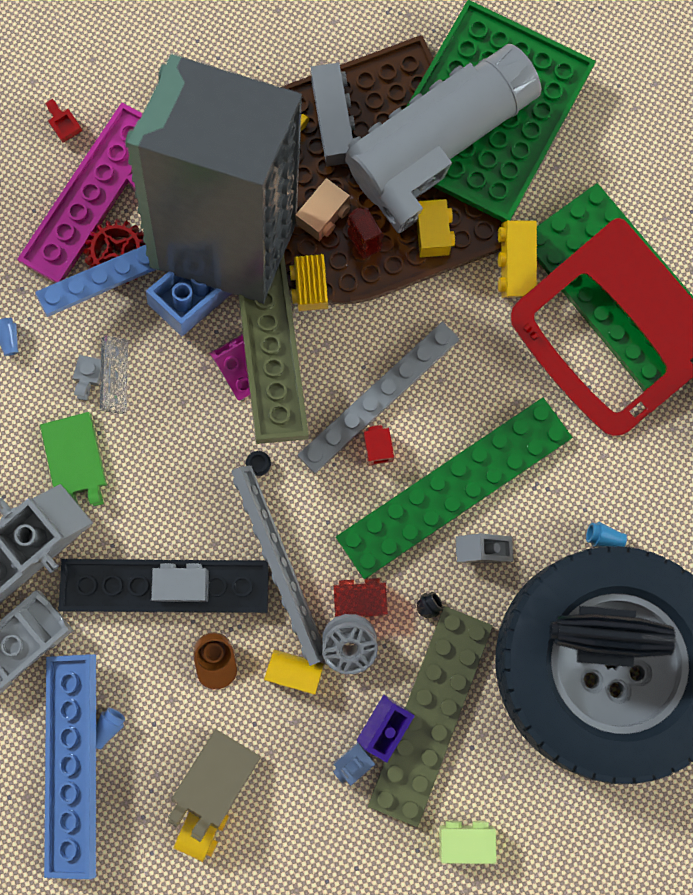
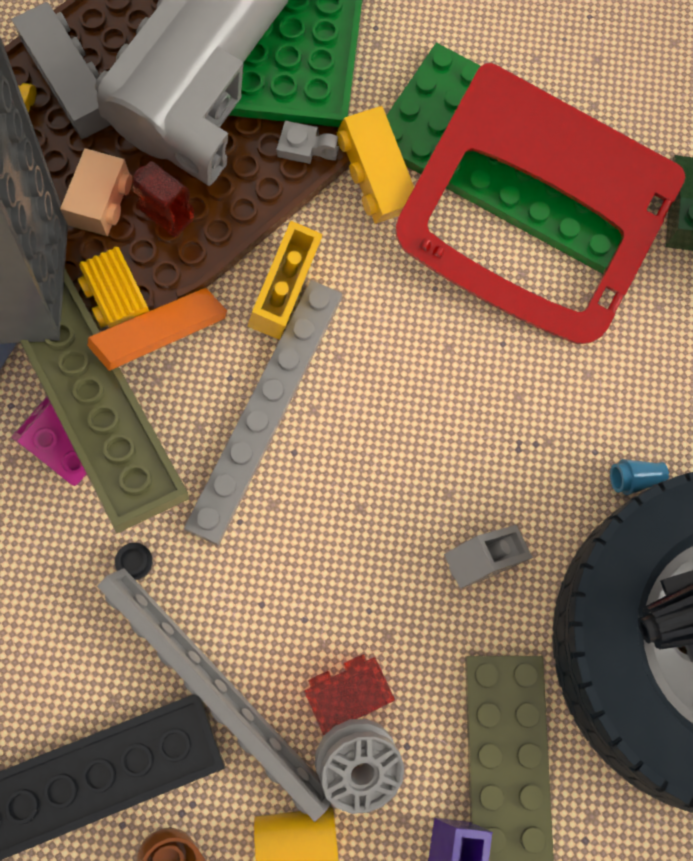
camera: 25 degrees left, 5 degrees down
(180, 584) = (80, 781): light grey brick -> none
(329, 318) = (156, 328): none -> orange tile
(378, 445) = (290, 472): red brick -> none
(424, 316) = (284, 280): none -> yellow brick
(429, 605) = (446, 663): black plate -> none
(434, 229) = (254, 165): yellow brick -> none
(453, 488) = (409, 496): green plate -> none
(474, 223) = (303, 141): none -> light grey plate

